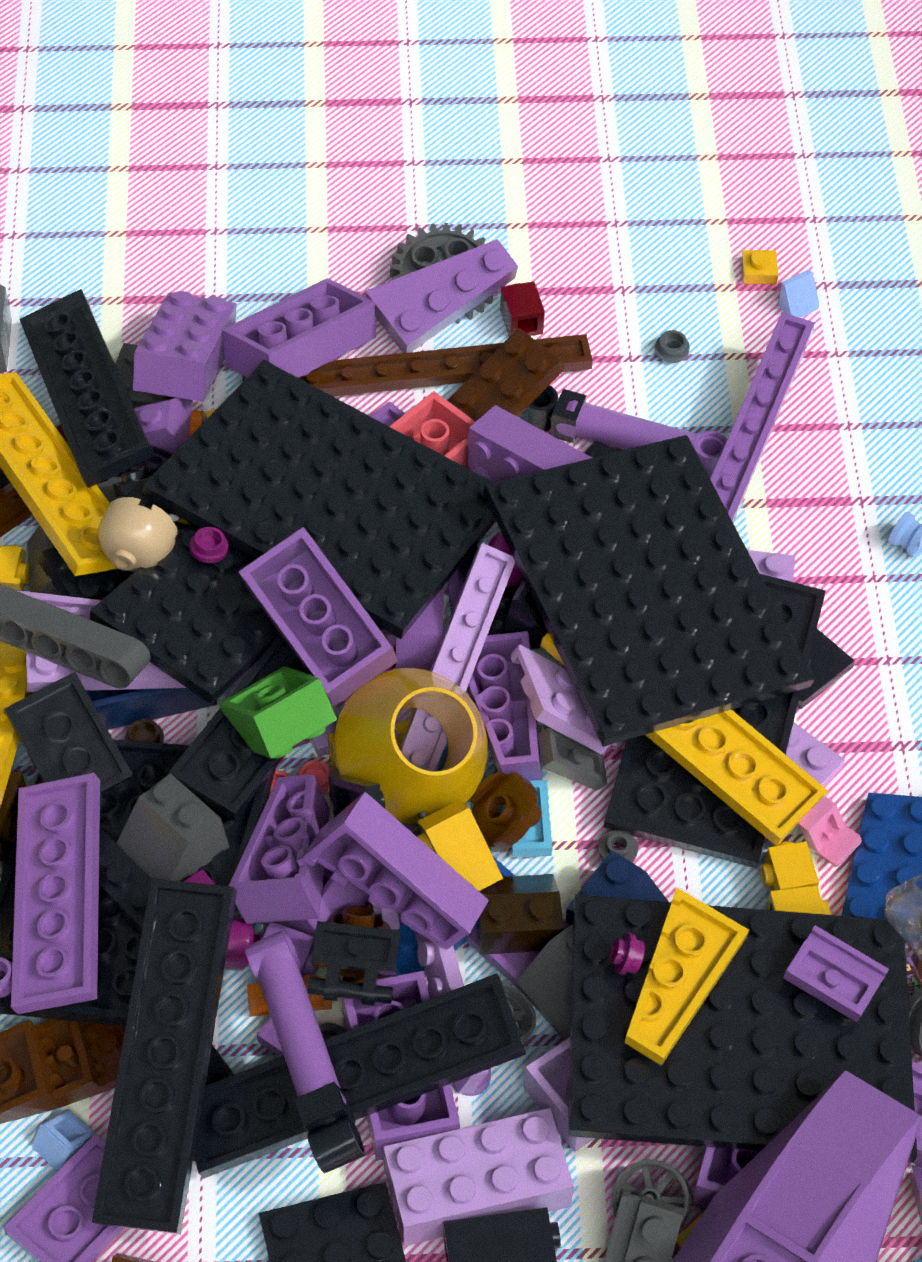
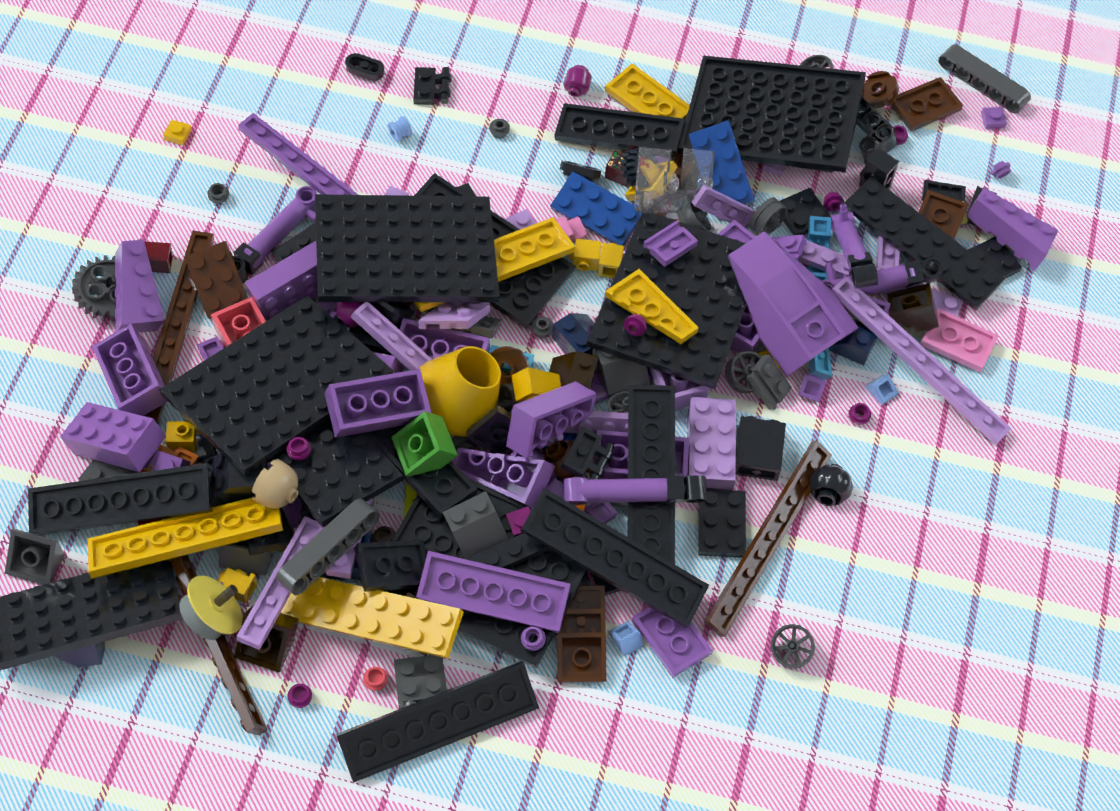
camera: 75 degrees left, 5 degrees up
(799, 295) = (211, 121): light blue slope -> none

